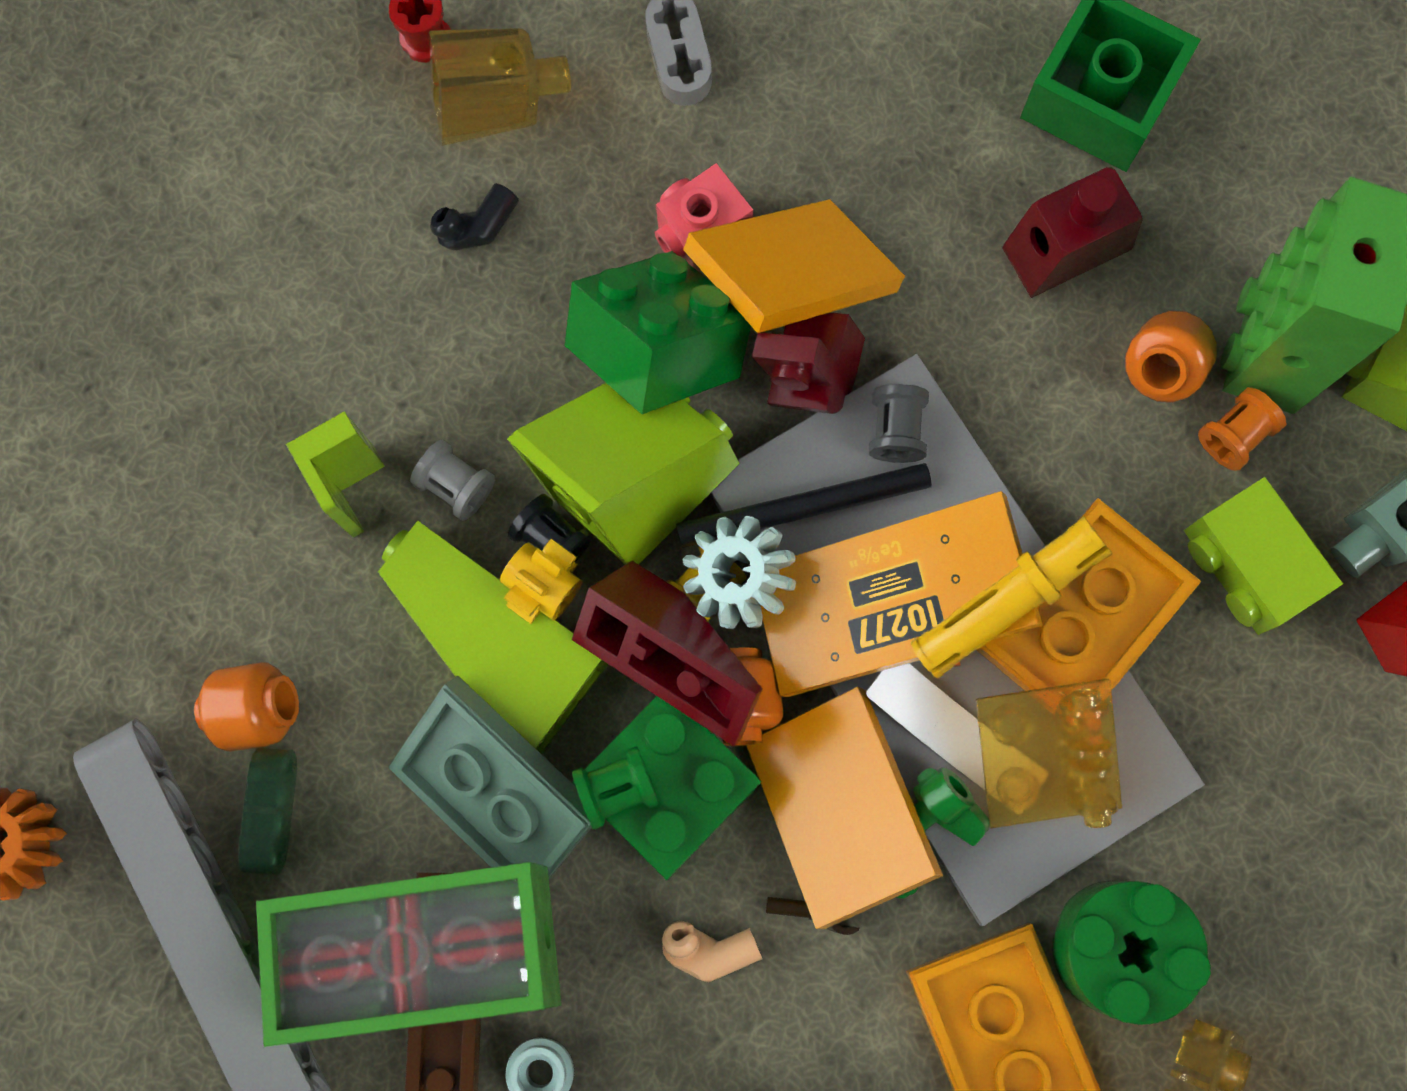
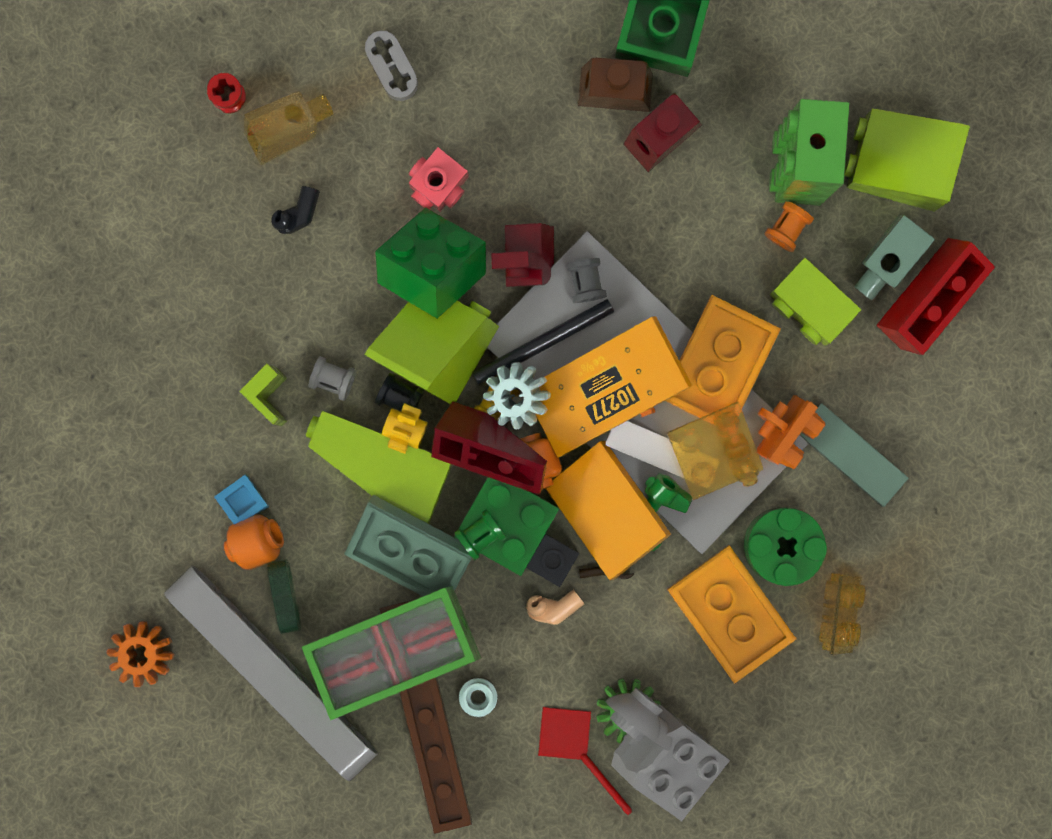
camera: 15 degrees left, 10 degrees up
(250, 633) = (241, 500): none -> dark azure plate
(727, 868) = (552, 560): none -> black brick
(793, 264) = (501, 198): light orange tile -> none
(1011, 597) = (661, 388): yellow pin -> none
(1016, 144) = (616, 84): none -> reddish brown torso
(1171, 356) = (737, 194): orange head -> none
(1174, 745) = (784, 426): none -> orange hips
(1273, 827) = (856, 458): none -> sand green tile

